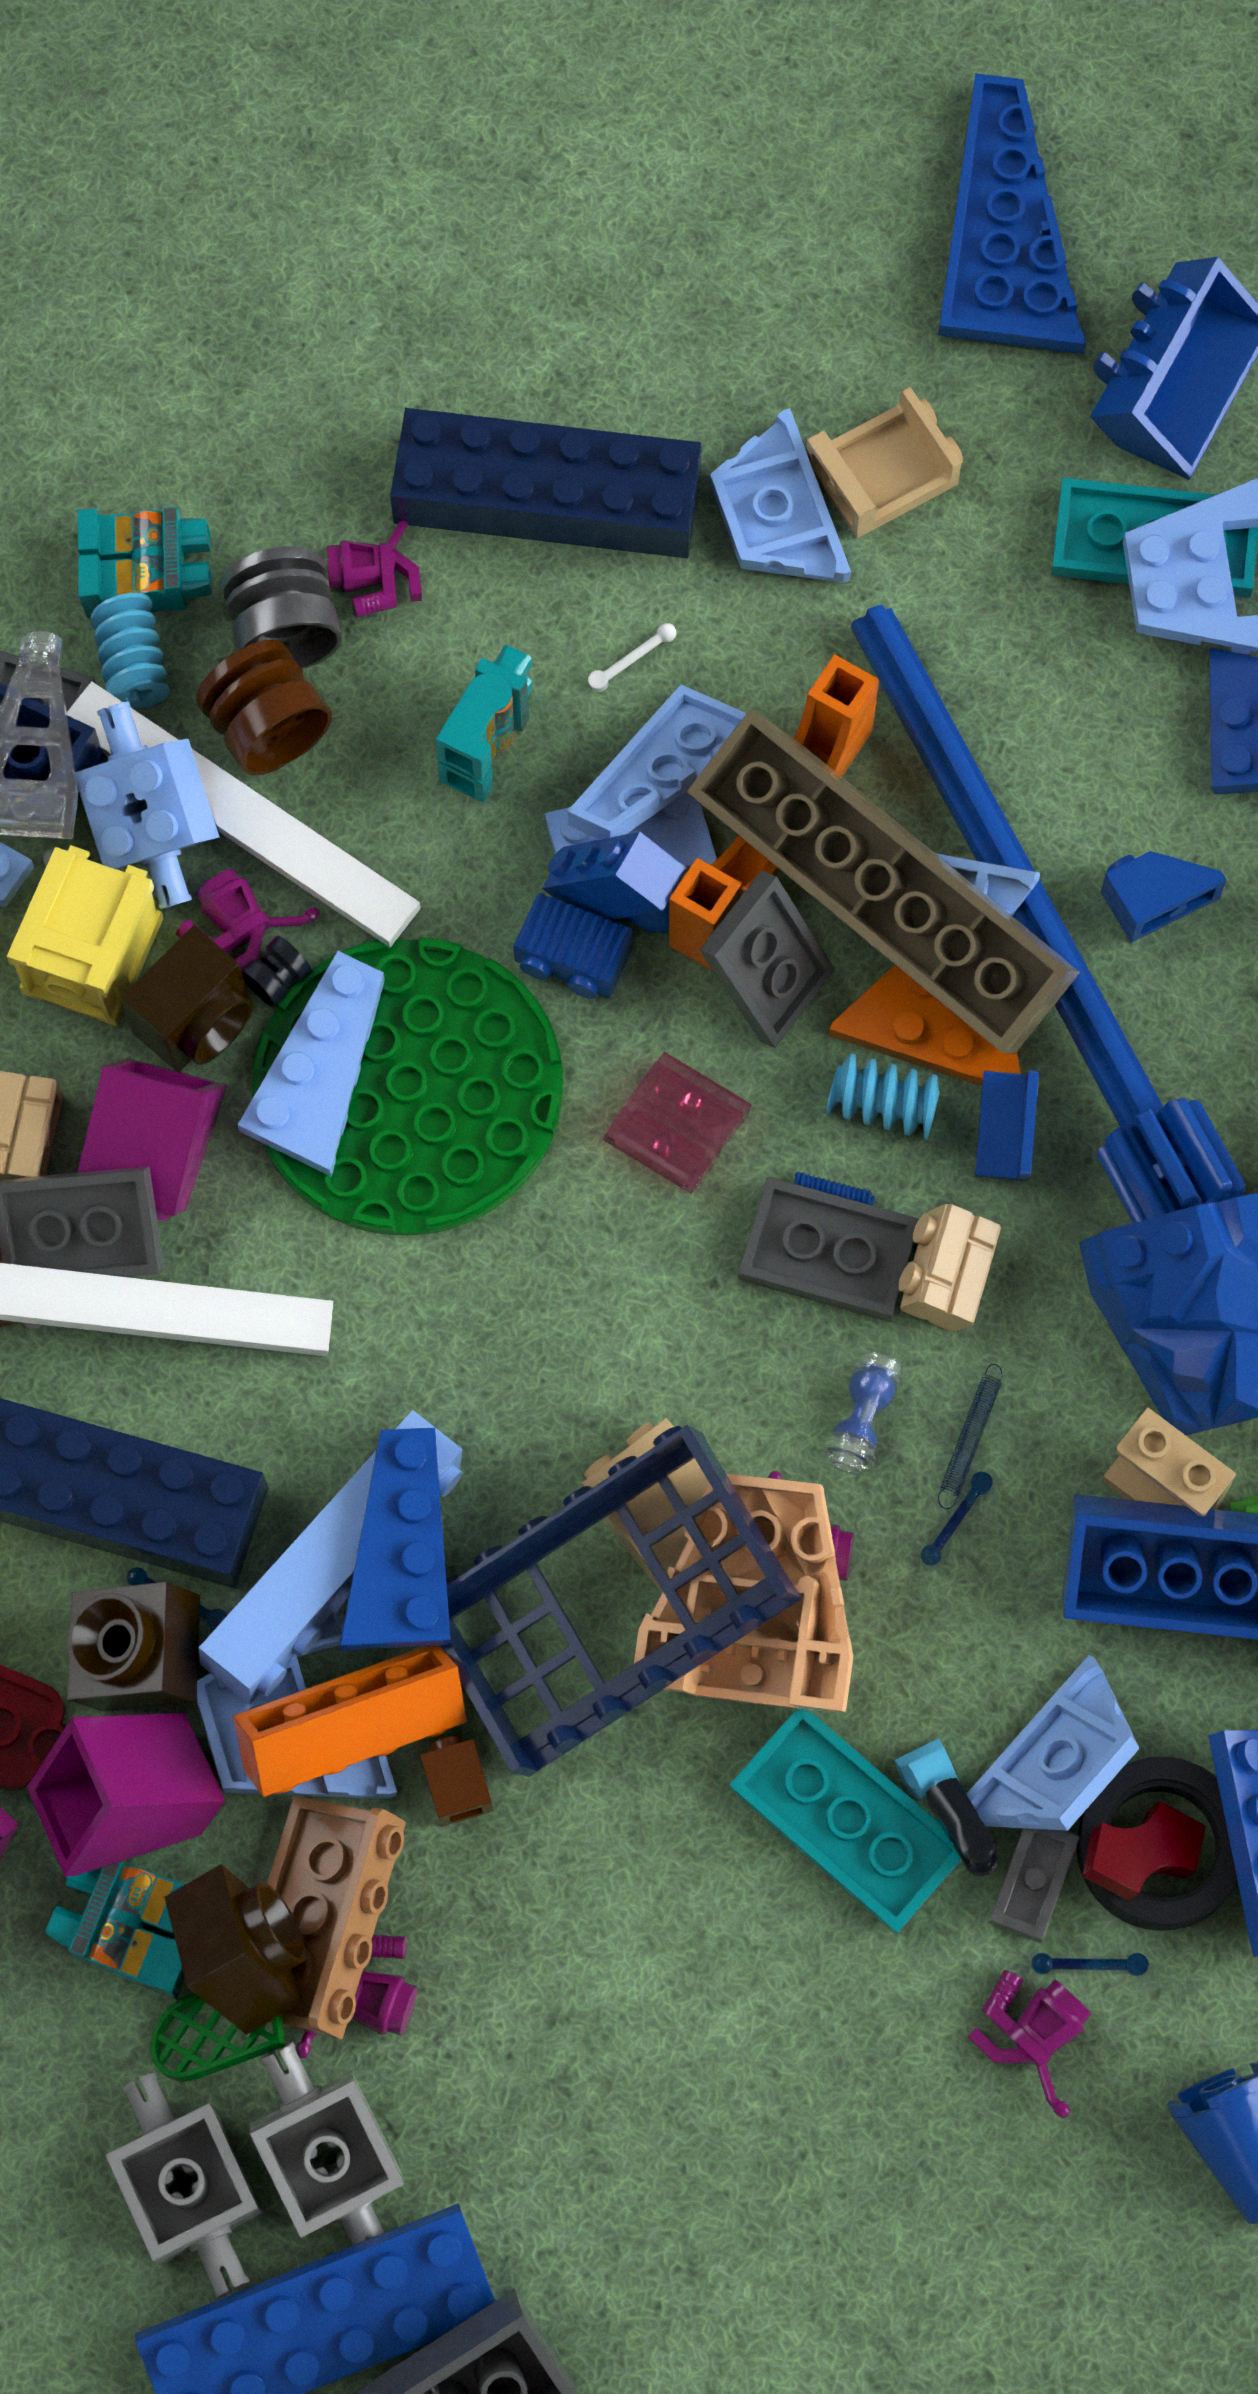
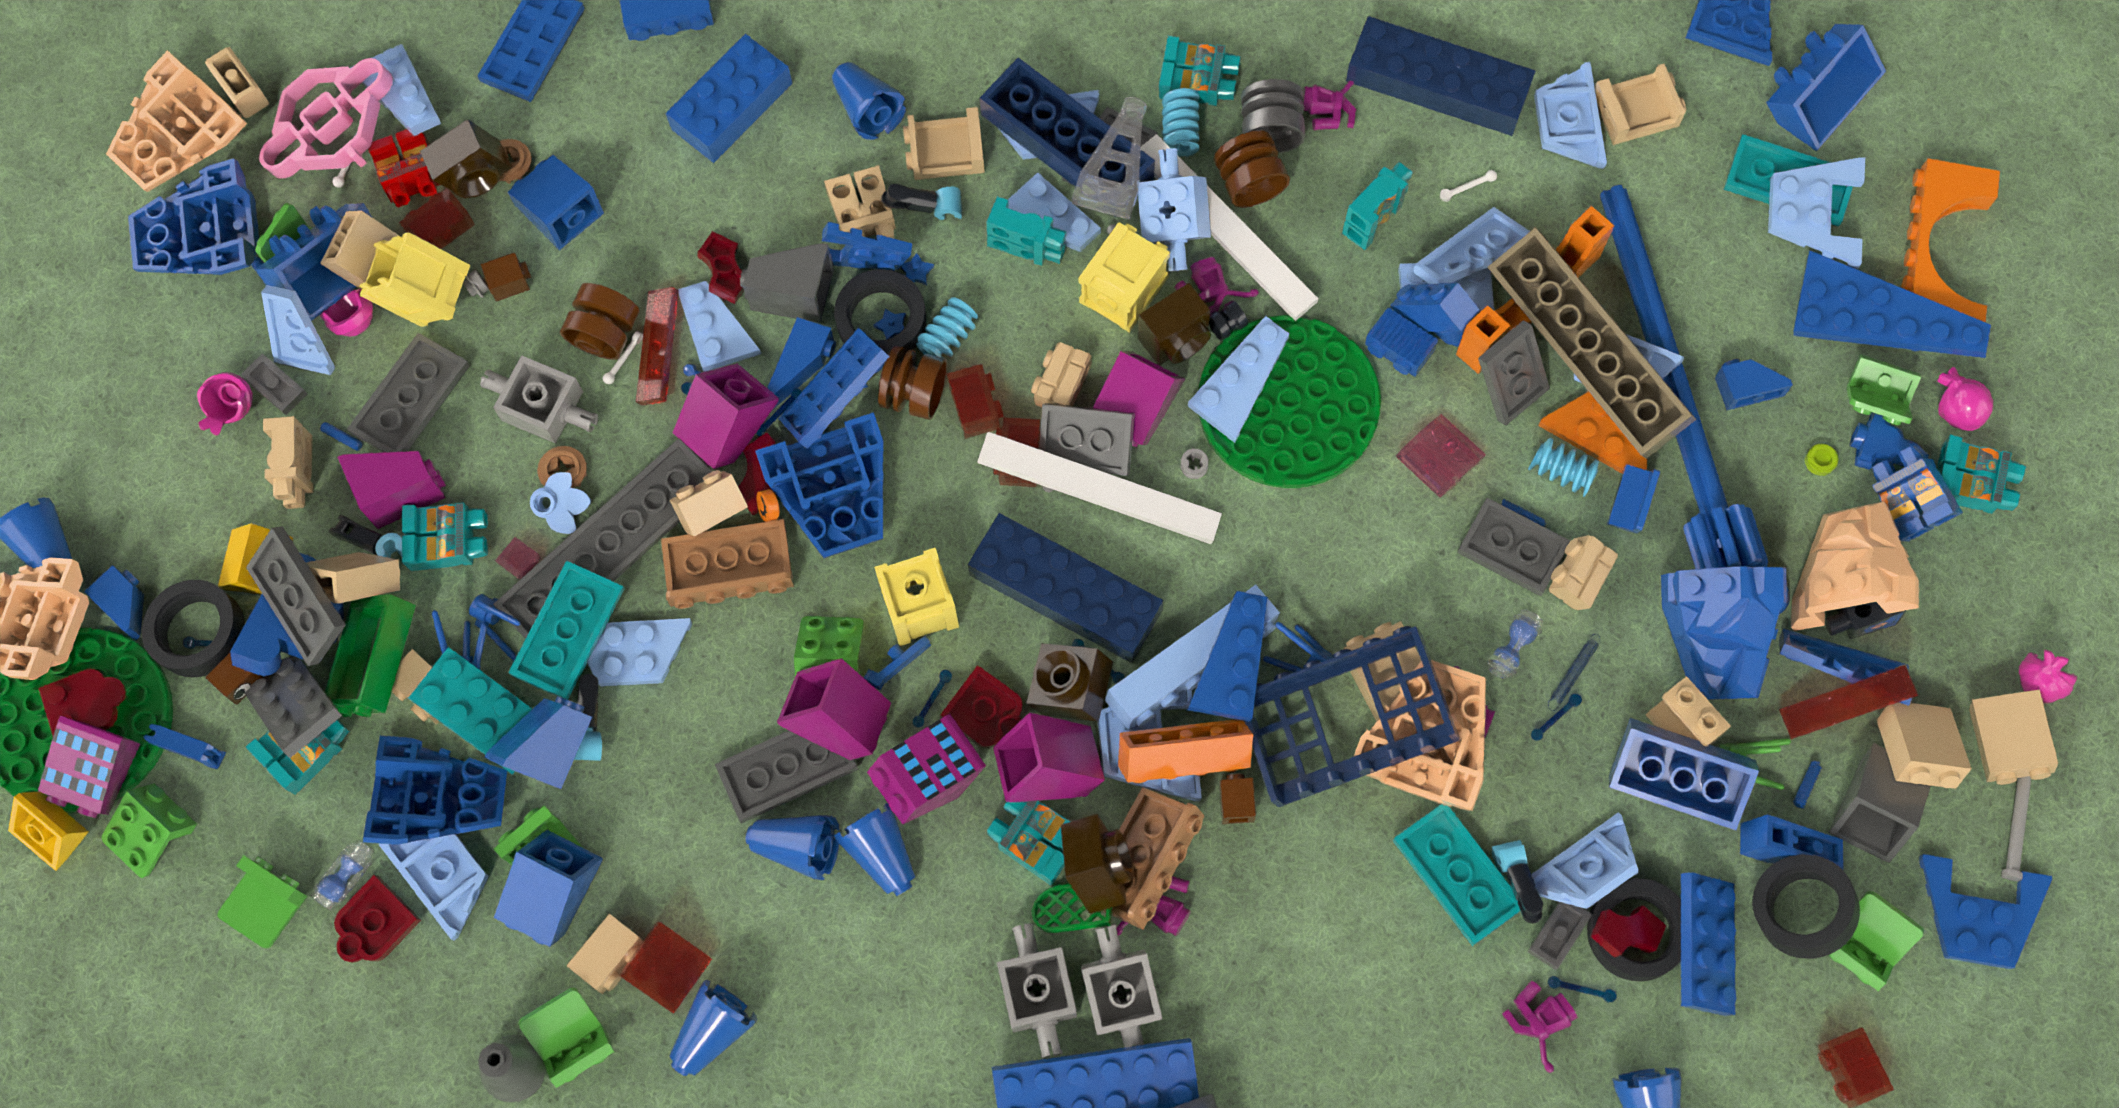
camera: 15 degrees right, 0 degrees up
(264, 1210) = (1197, 473): none -> light grey bush
(544, 1503) = (1316, 651): none -> blue plant

